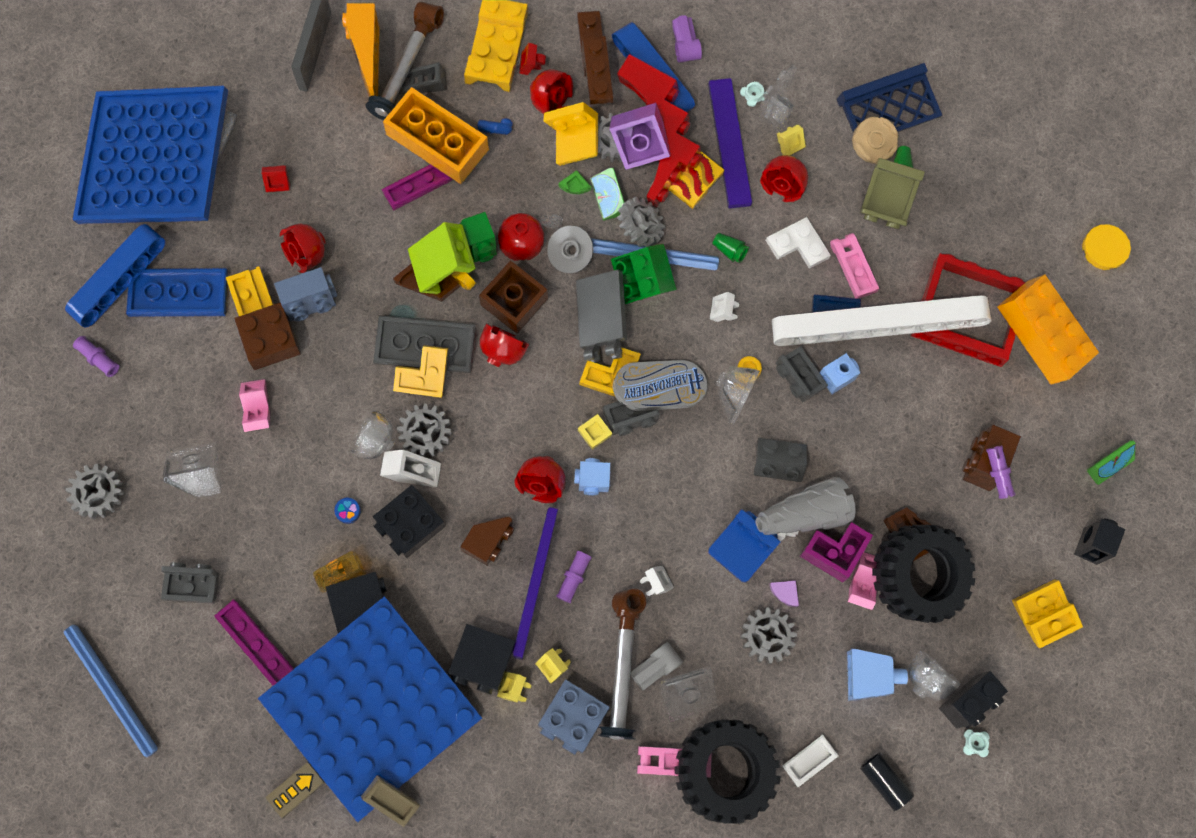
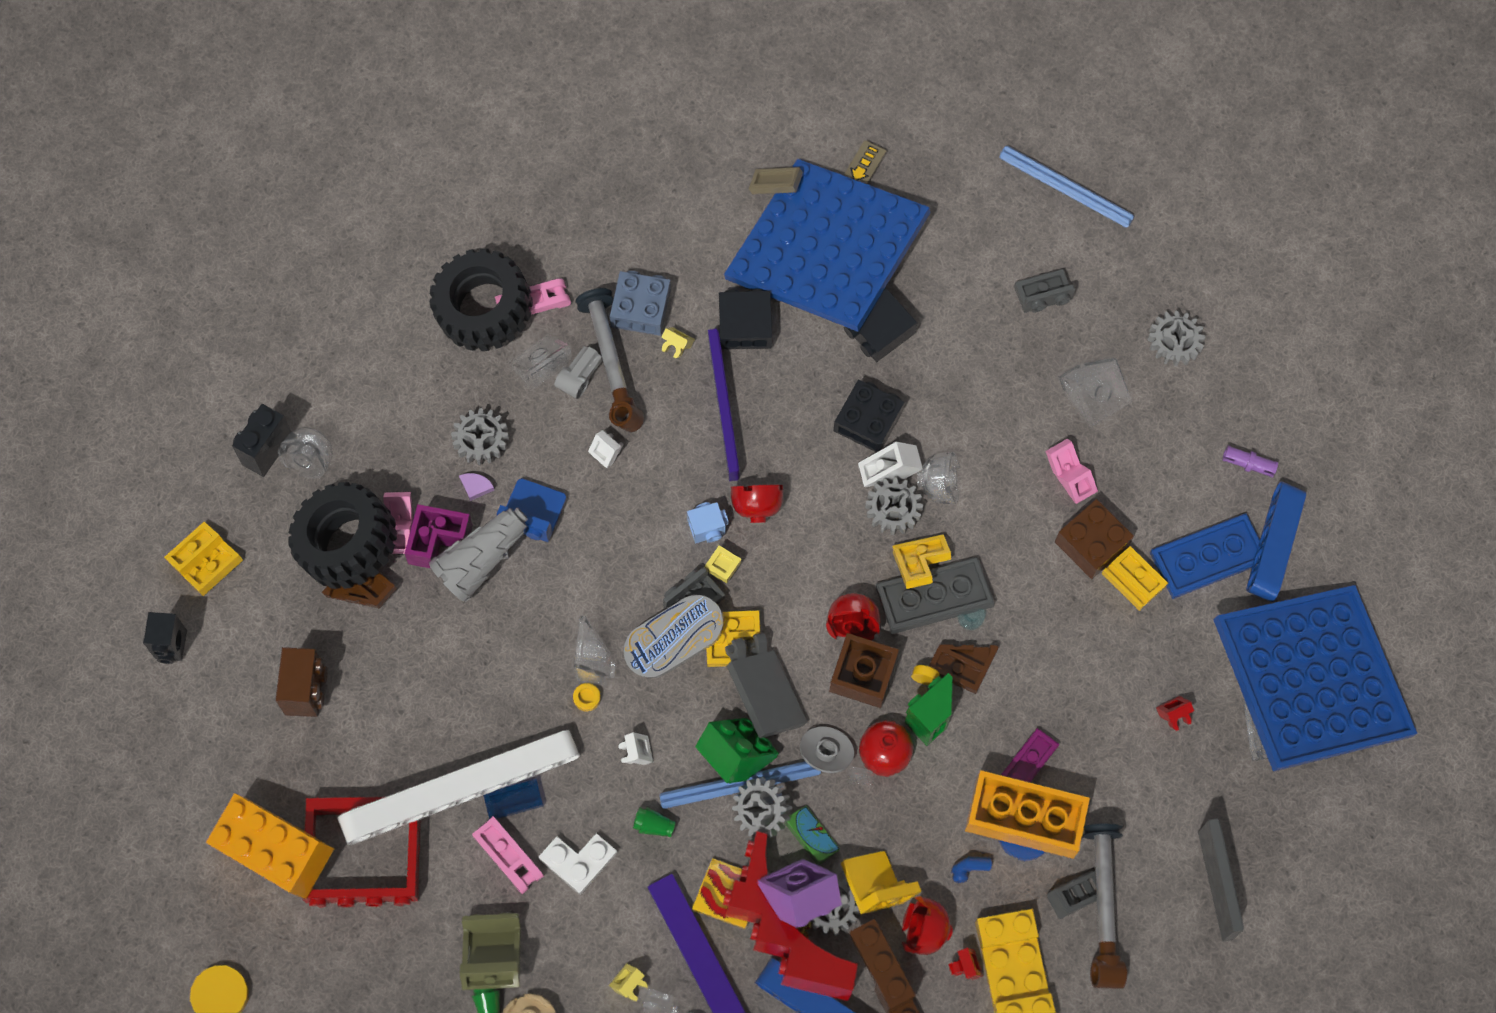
camera: 165 degrees right, 5 degrees down
(253, 642) = (957, 266): magenta tile -> none
(301, 242) = (1105, 645): red cylinder -> none
(306, 294) = (1076, 588): sand blue brick -> none
(339, 570) = (911, 350): clear yellow leg -> none
(347, 510) = (933, 409): blue tile -> none
(364, 35) = (1159, 896): light orange slope -> none
(439, 256) = (953, 665): lime panel -> none
(485, 538) = (788, 426): reddish brown slope -> none
(512, 687) = (707, 308): light yellow tile -> none
(573, 576) = (689, 424): medium lavender pin -> none
(574, 183) = (853, 835): bright green tile -> none
(780, 460) = (522, 611): dark grey bracket -> none
(785, 177) = (618, 928): red cylinder -> none
(800, 374) = (529, 706): dark grey bracket -> none
(810, 761) = (405, 344): white tile -> none
(840, 373) = (487, 719): light blue brick -> none
(872, 675) = (366, 435): light blue torso -> none
(887, 781) = (327, 349): black pin -> none
(983, 743) = (244, 408): light aqua plate -> none
(1000, 472) = (289, 648): medium lavender pin -> none
(1113, 463) = (165, 738): slope -> none

